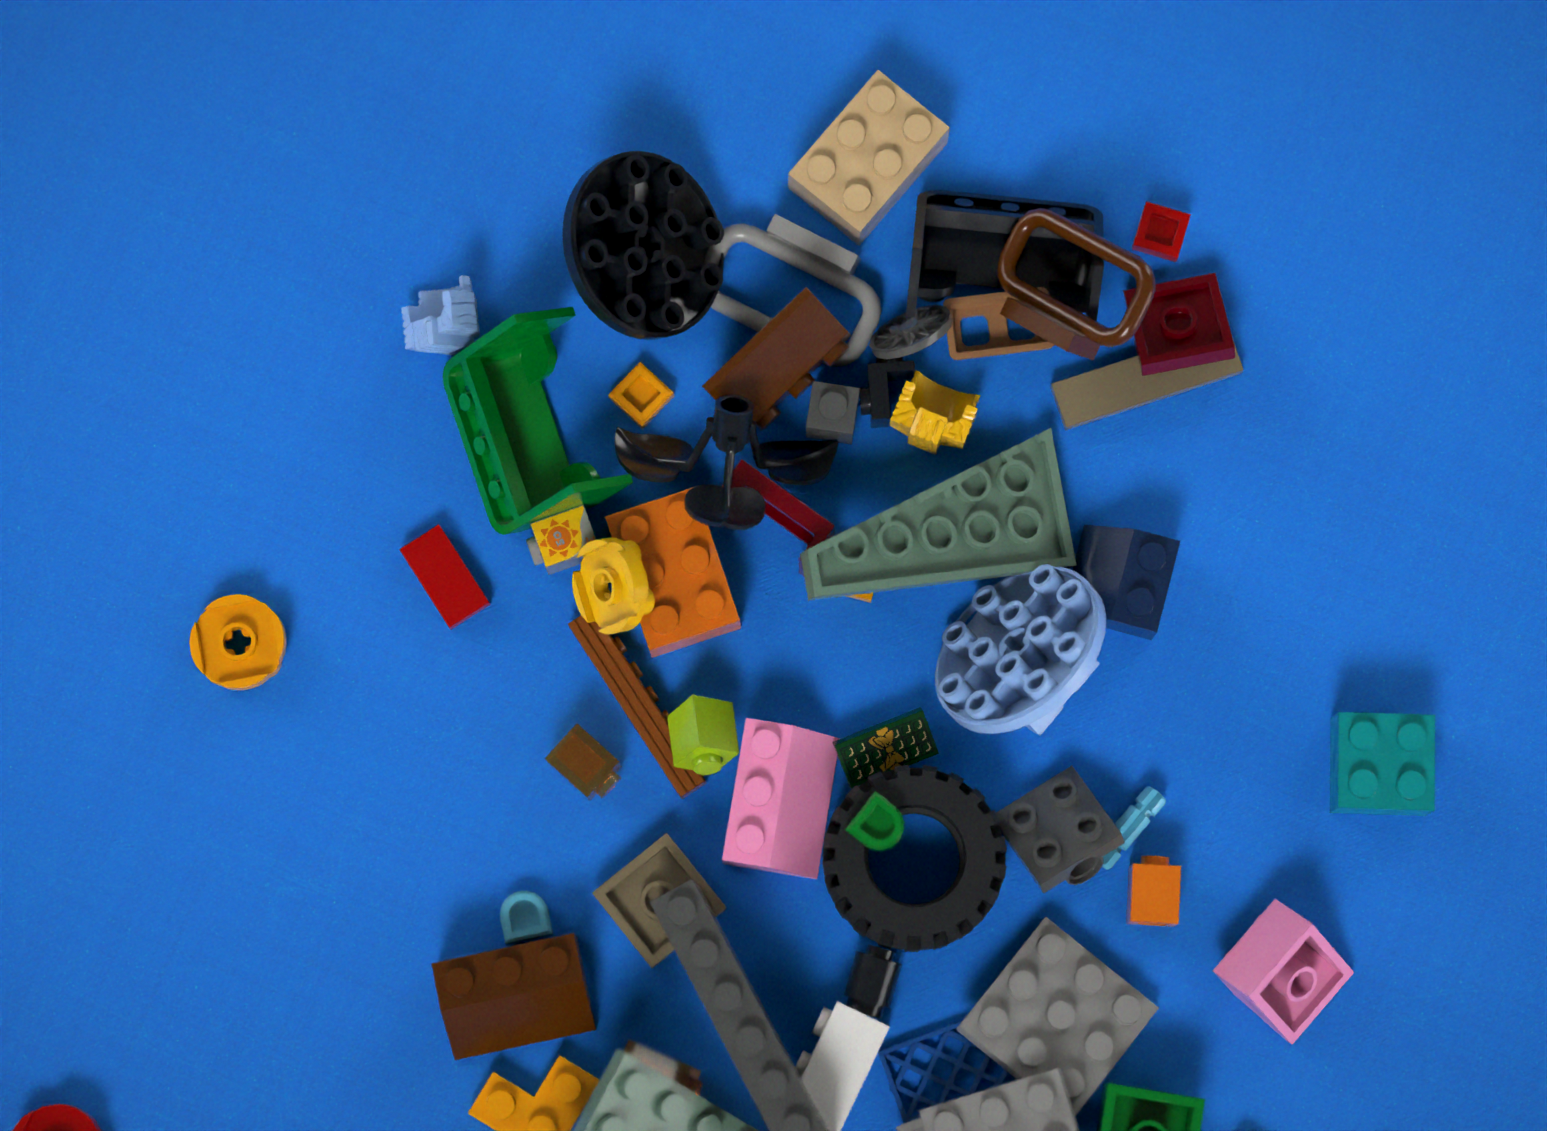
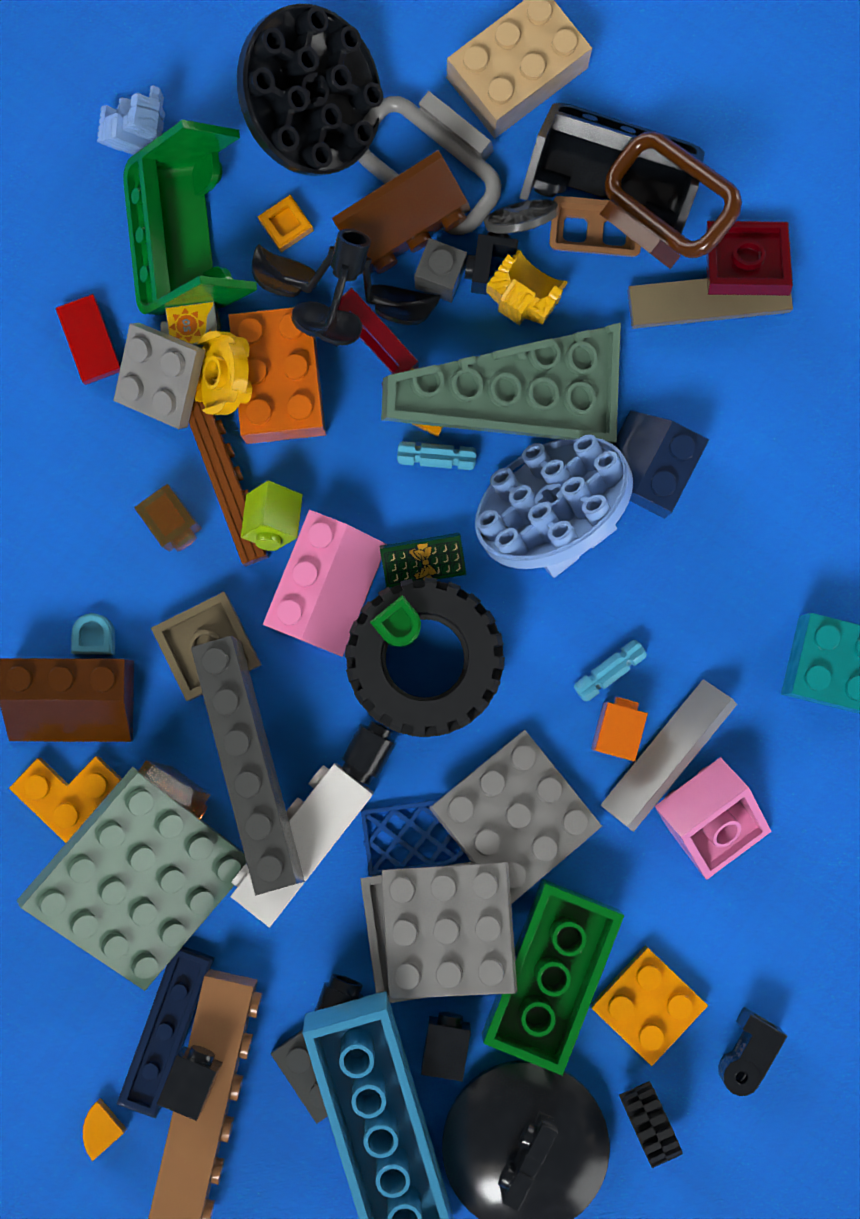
camera: 10 degrees right, 5 degrees up
(539, 602) = (159, 375): none -> light grey plate
(874, 624) = (436, 455): none -> medium azure axle
(1059, 831) = (552, 661): dark grey plate -> none
(1161, 231) = (752, 177): red plate -> none
(1216, 909) = (668, 755): none -> light grey tile

